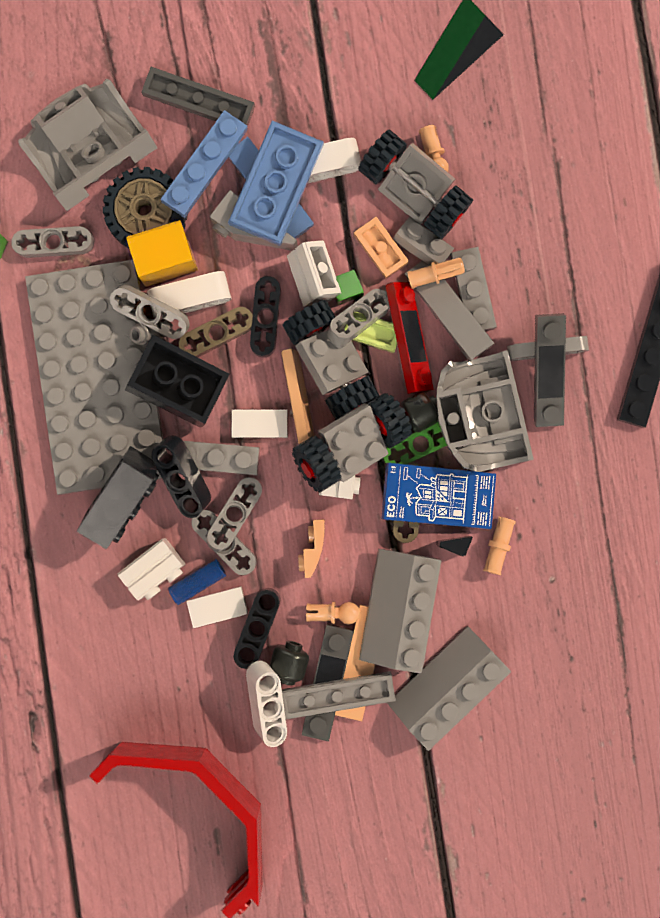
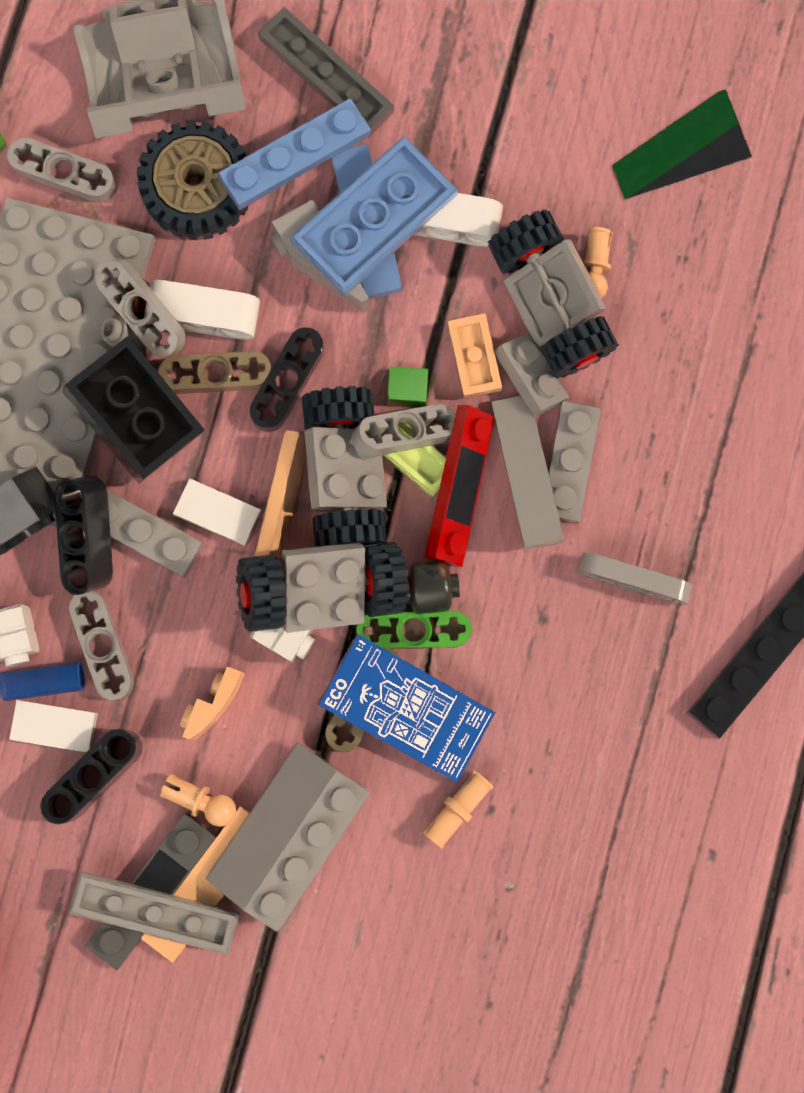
camera: 20 degrees right, 5 degrees down
(161, 253) = (189, 242): yellow slope -> none
(238, 493) = (160, 607): light grey beam -> none
(271, 714) = (56, 898): white beam -> none
(289, 662) = (111, 841): pearl dark grey head -> none
(313, 273) = (372, 349): white brick -> none
(436, 272) = (529, 416): light nougat axle -> none
(448, 688) = (306, 969): light grey slope -> none
(456, 545) = (399, 783): black slope -> none
(482, 413) = (509, 624): light grey piece -> none
(549, 369) = (623, 606): dark grey plate -> none

